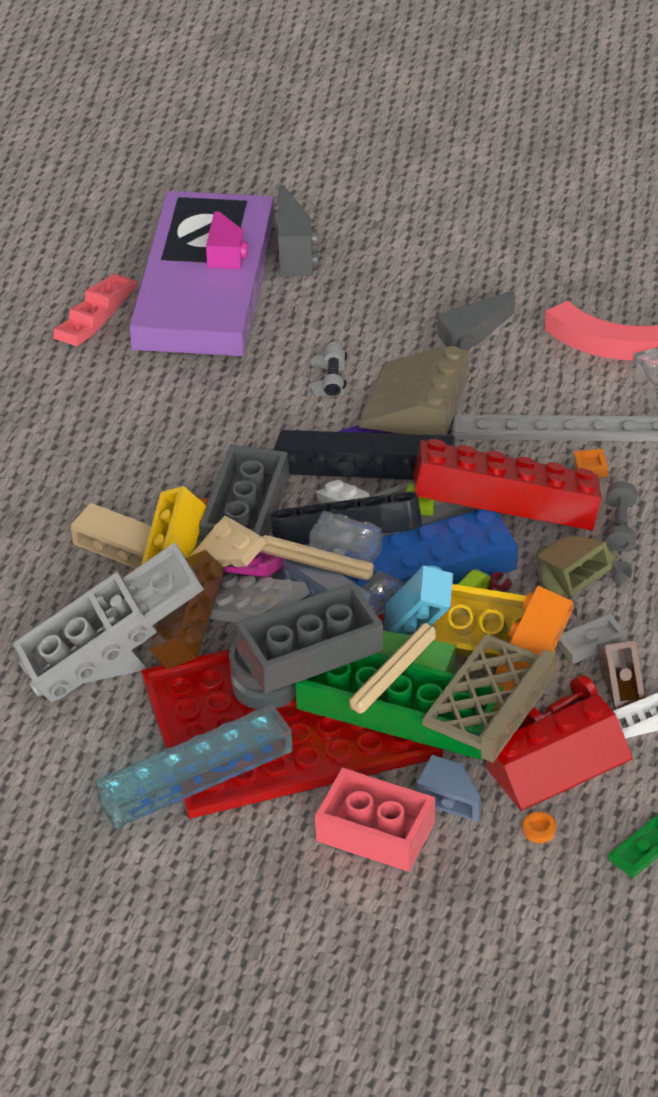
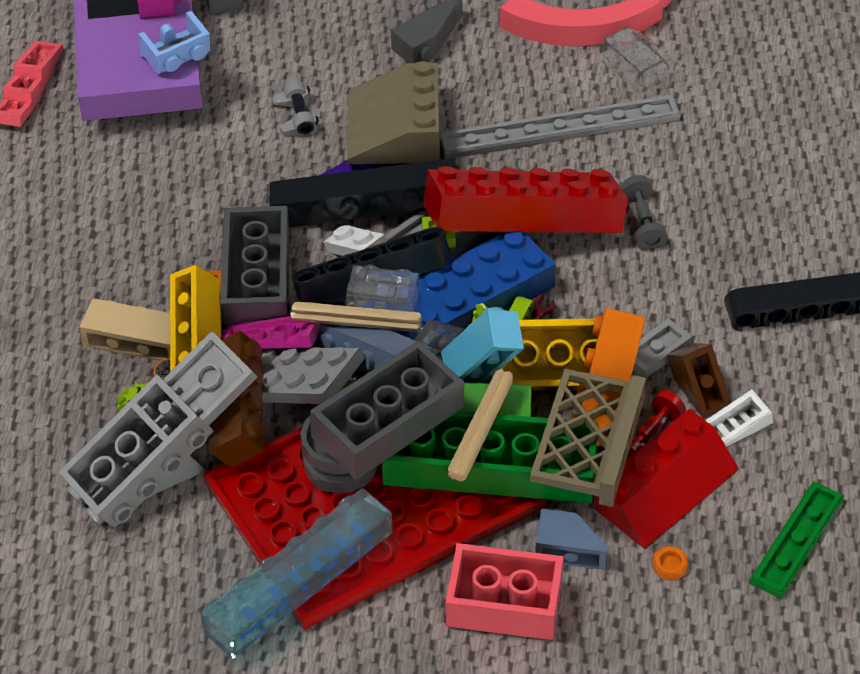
camera: 15 degrees left, 5 degrees up
(227, 297) = (176, 48): none -> light blue window
(231, 543) = (262, 318): tan wing -> none
(577, 562) = (616, 272): olive torso -> none
(592, 460) = (594, 158): orange plate -> none

